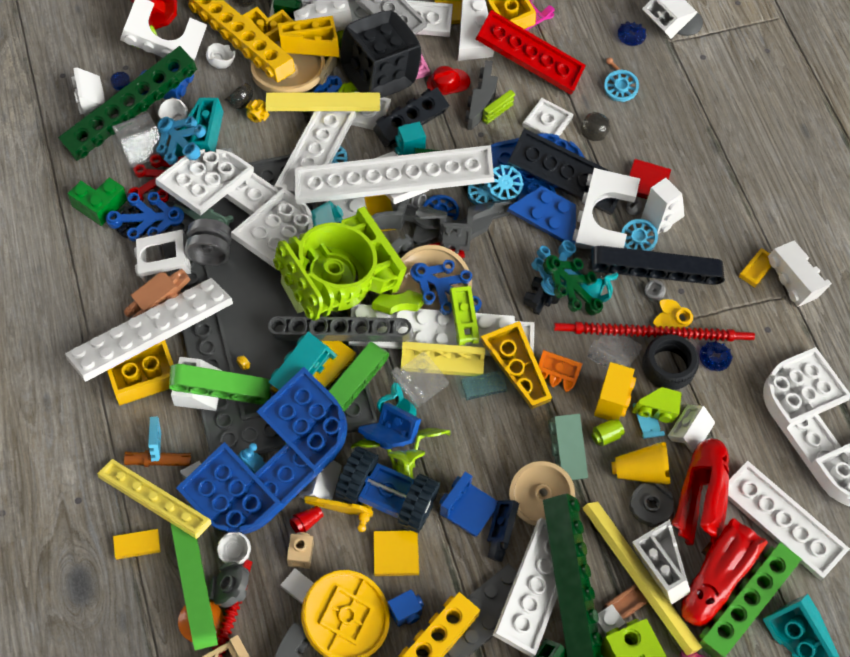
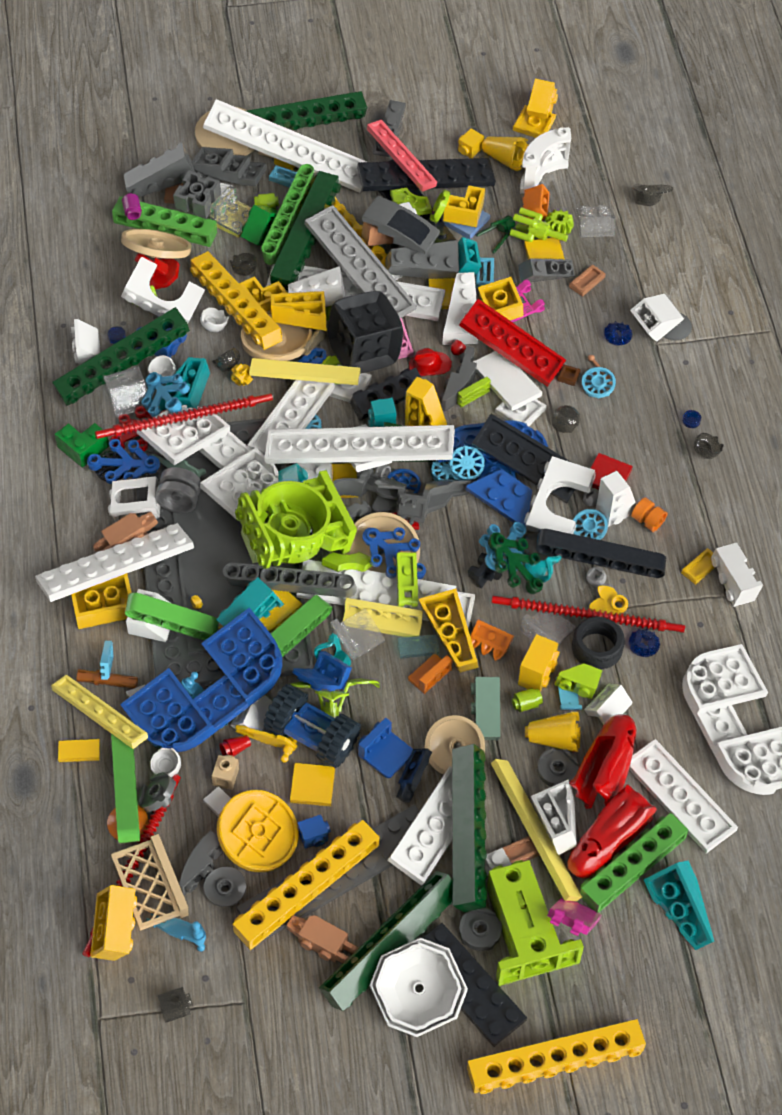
camera: 10 degrees right, 5 degrees down
(135, 184) = (117, 430): none -> red hose
(451, 127) = (423, 405): none -> yellow wedge
(474, 62) = (457, 347): none -> red hinge
(501, 412) = (430, 672): none -> orange panel
(530, 92) = (507, 380): none -> white tile
(590, 80) = (569, 375): none -> reddish brown tile
(697, 218) = (649, 514): none -> orange wheel
(720, 114) = (691, 419): none -> clear blue tile
(742, 141) = (707, 446): none -> clear smoke hair

